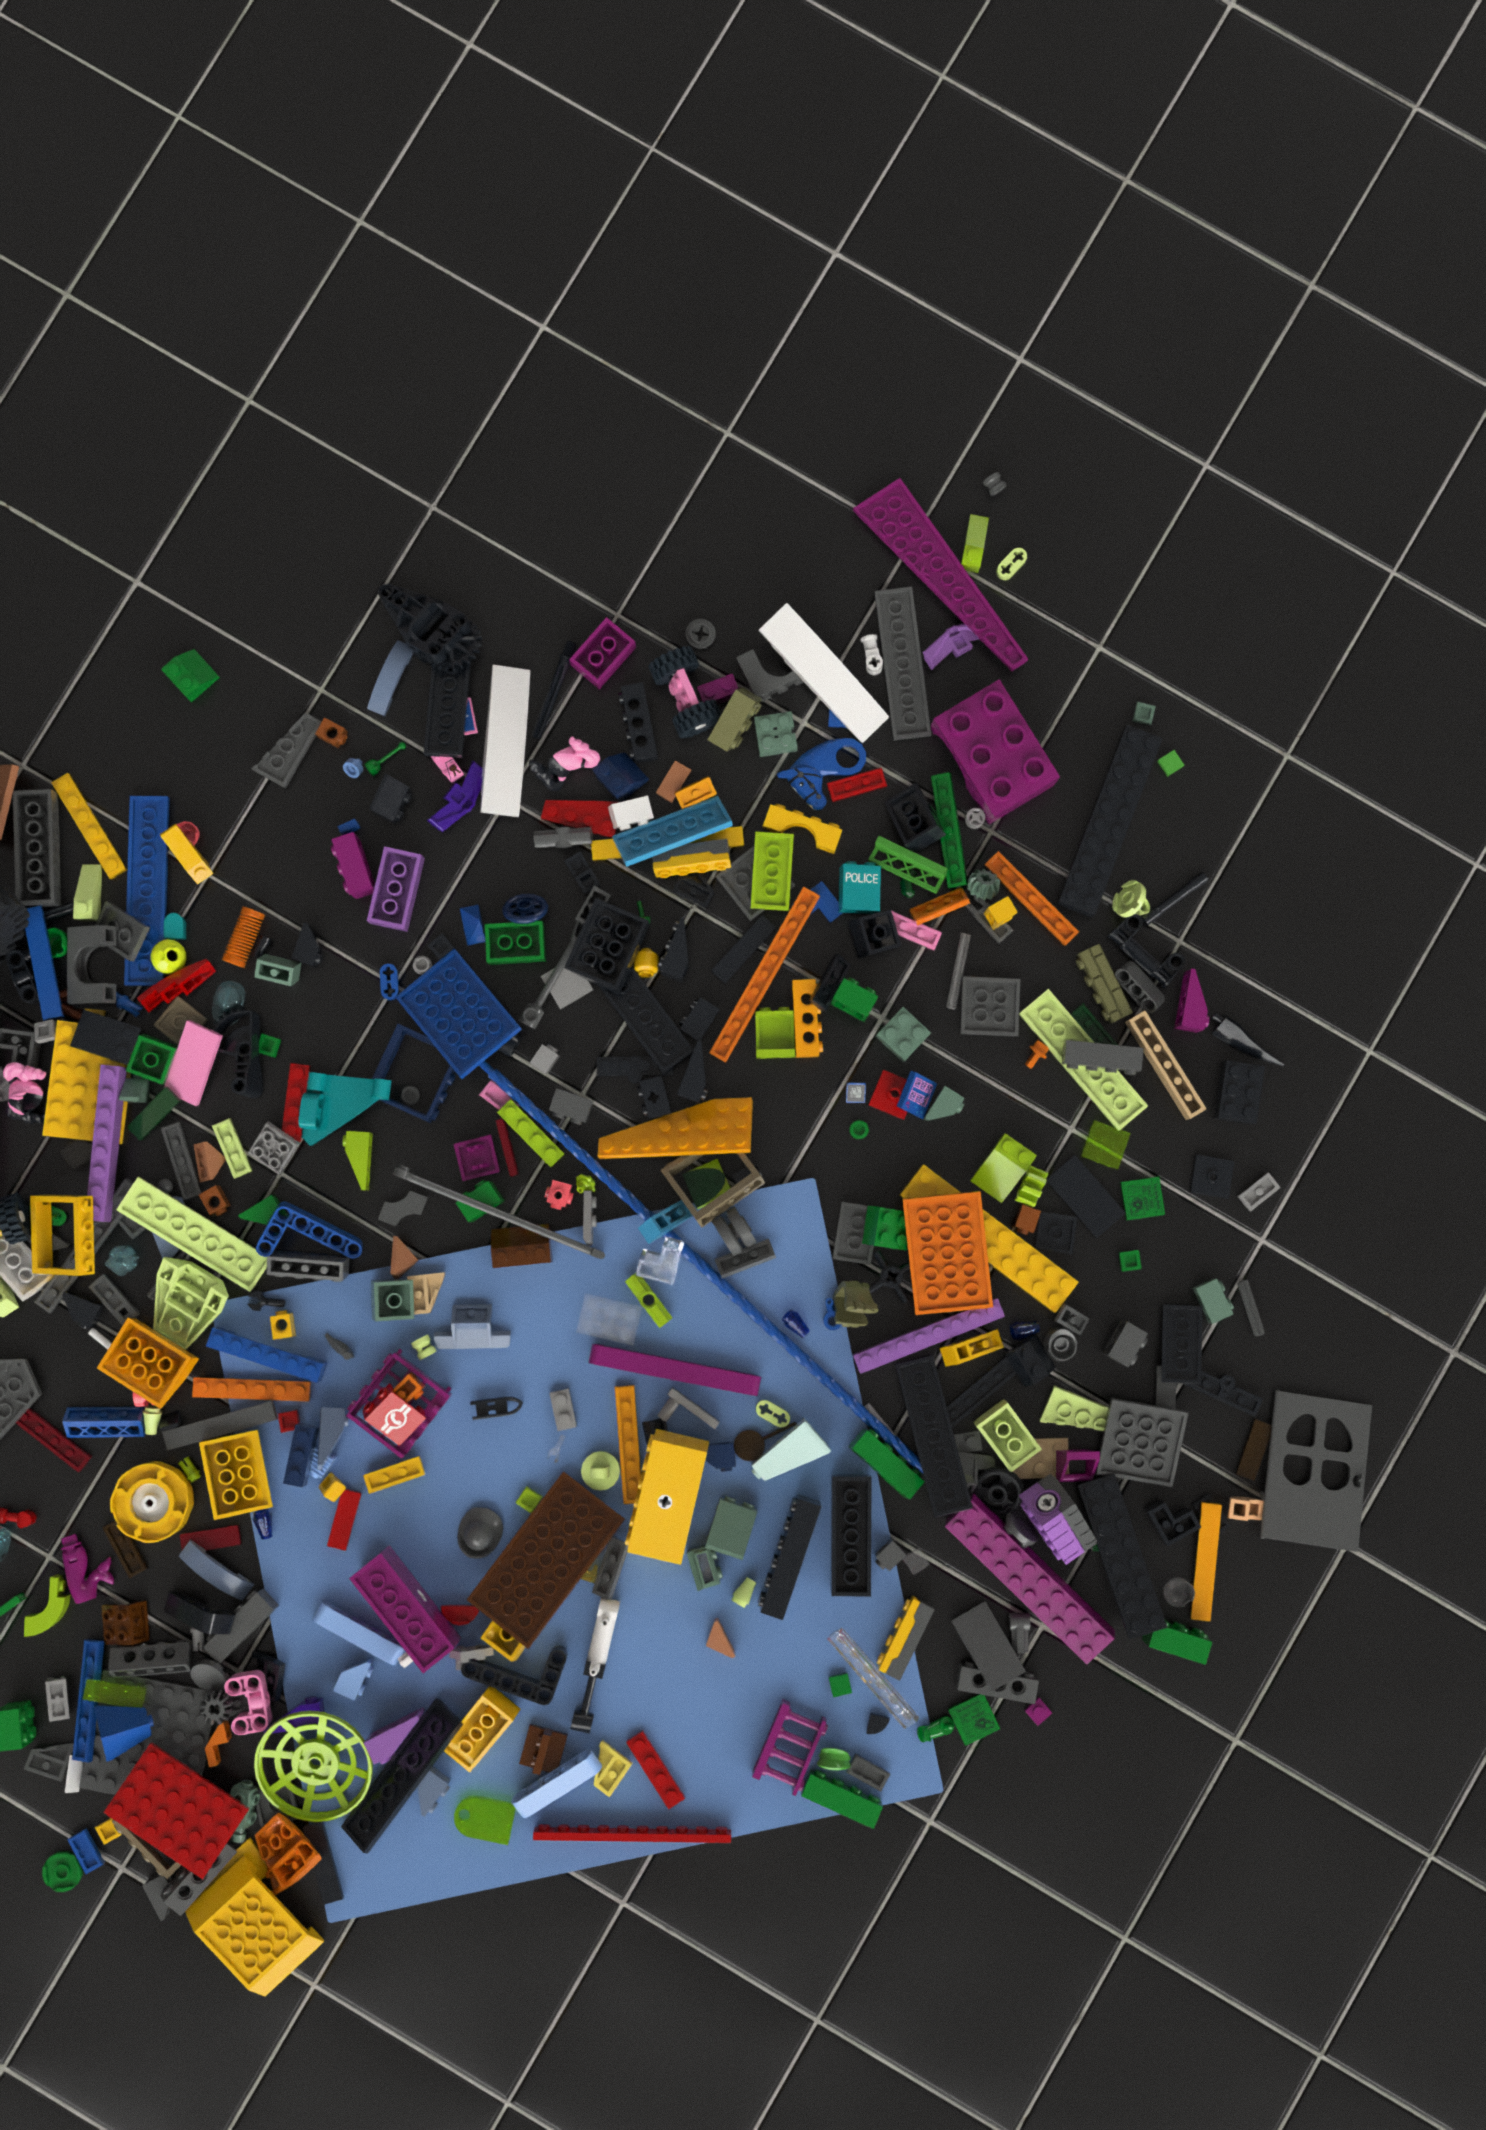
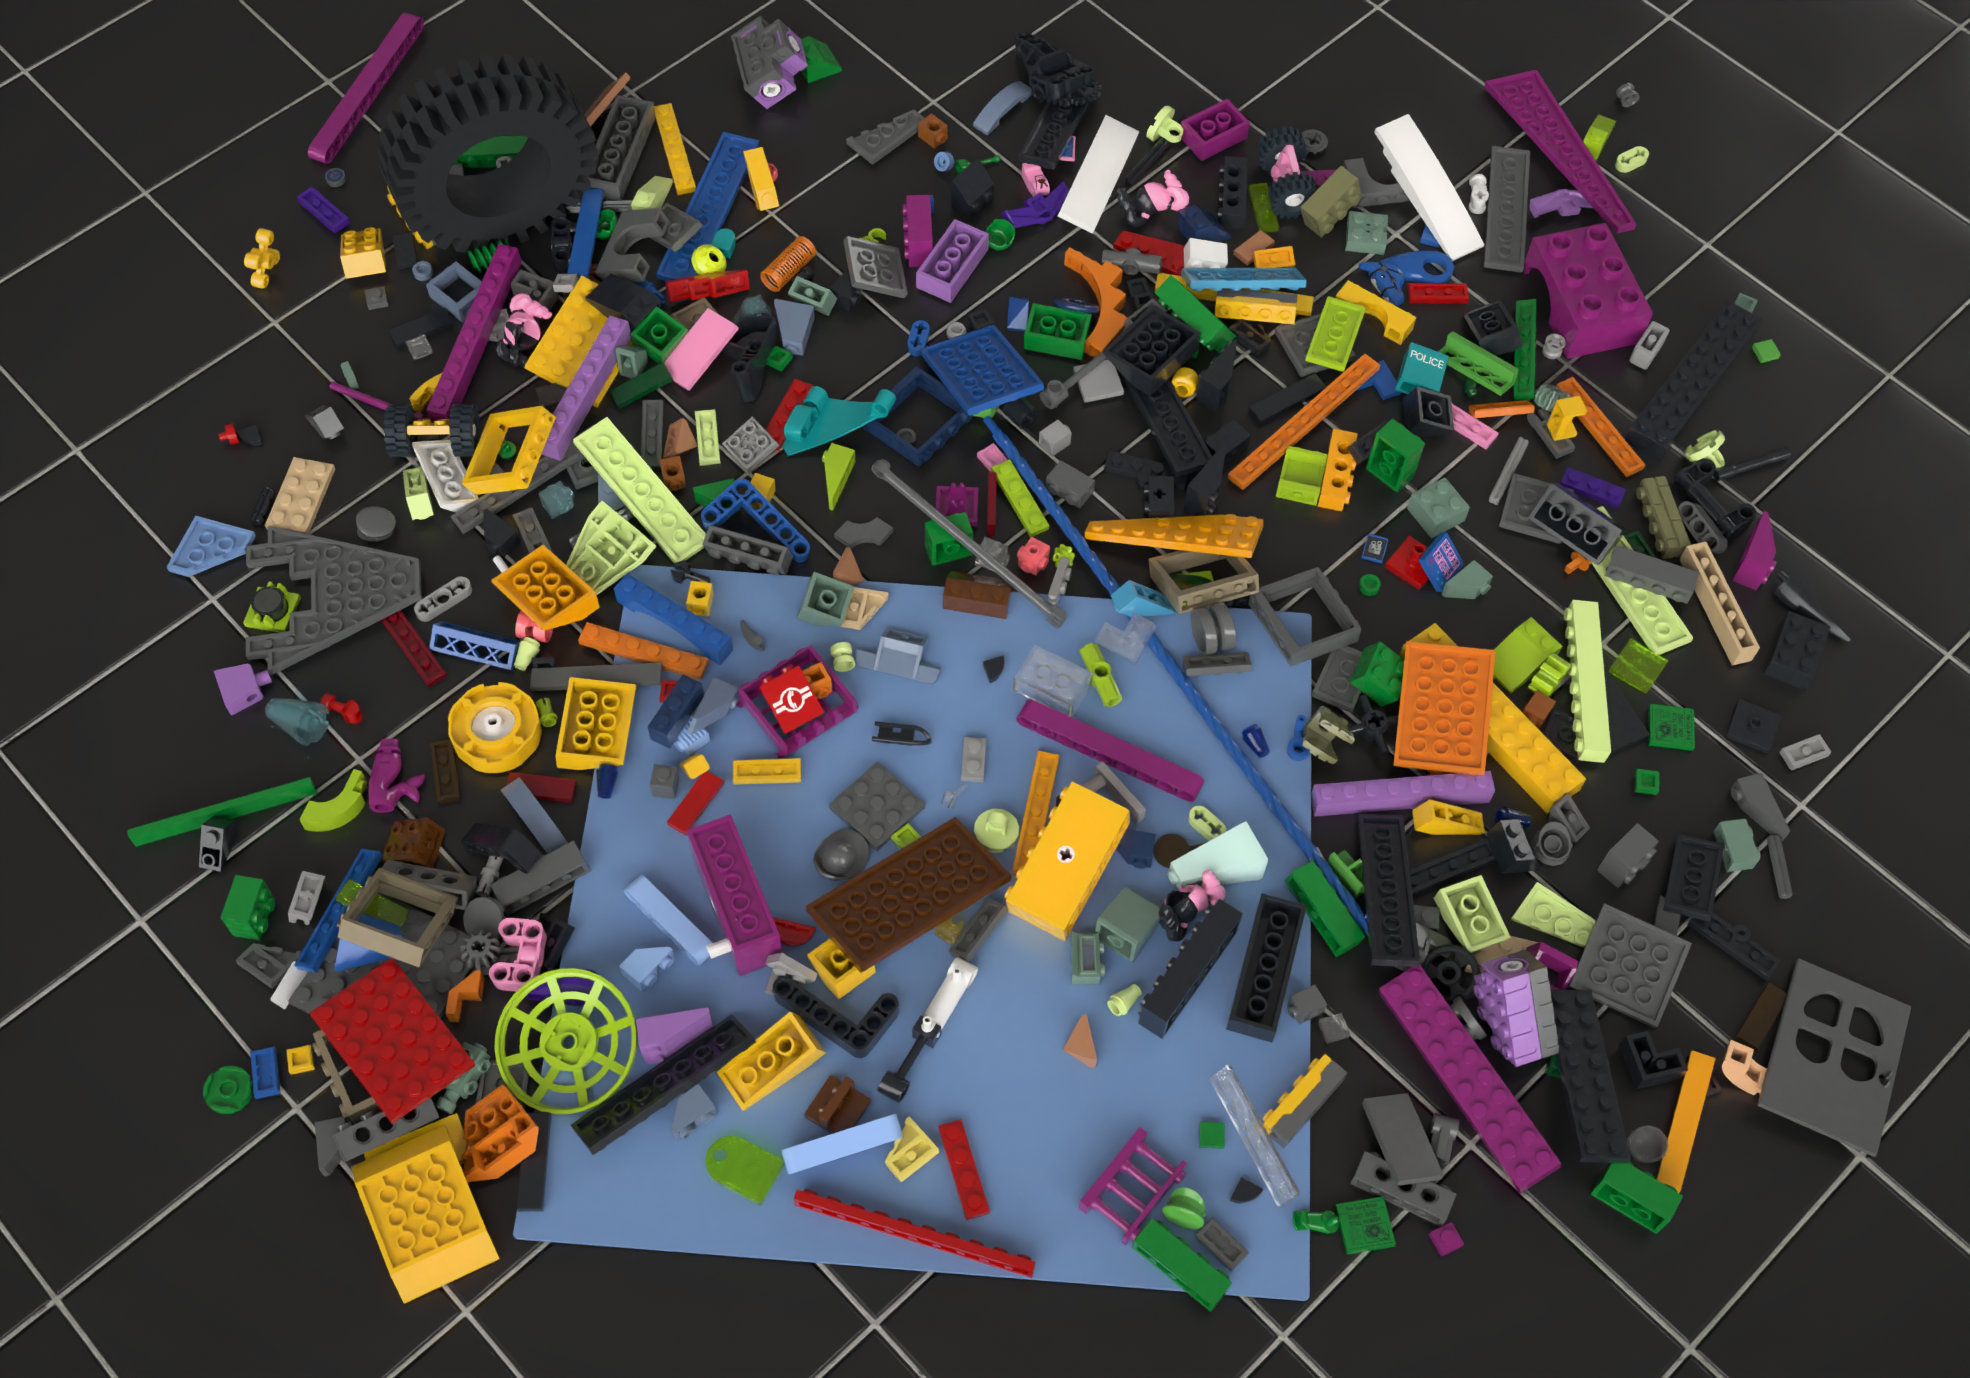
camera: 15 degrees right, 25 degrees down
(63, 1371) = (442, 607): none -> light grey beam
(140, 1674) = (408, 891): none -> dark tan window
(145, 704) = (768, 59): none -> dark grey piece
(271, 1006) = (794, 324): none -> sand blue slope
(299, 1195) = (765, 486): none -> yellow brick
(308, 881) = (875, 233): none -> lime piece
(312, 1512) = (664, 781): none -> dark grey brick
(326, 920) = (875, 267): none -> dark grey plate
(431, 843) = (1000, 234): none -> green hair
(495, 1477) = (877, 806): none -> dark grey plate
(523, 1201) = (995, 549): none -> clear brick
(553, 664) = (1163, 125): none -> yellowish green tile
(556, 1316) = (994, 668): none -> black tile
(561, 917) = (1104, 281): none -> orange arch
(637, 889) = (1194, 313): none -> green brick
(664, 713) = (1262, 209): none -> clear neon green tile
(772, 1498) = (1183, 905): none -> hair
(829, 1161) = (1312, 578): none -> dark grey window
(897, 1418) = (1348, 872): none -> bright green panel
(1029, 1020) = (1577, 523): none -> black slope
(1036, 967) = (1593, 488): none -> dark purple plate
(1062, 796) = (1649, 345): none -> light grey brick
(1064, 1179) = (1587, 682): none -> yellowish green brick
(1223, 1251) = (1758, 803): none -> dark grey slope

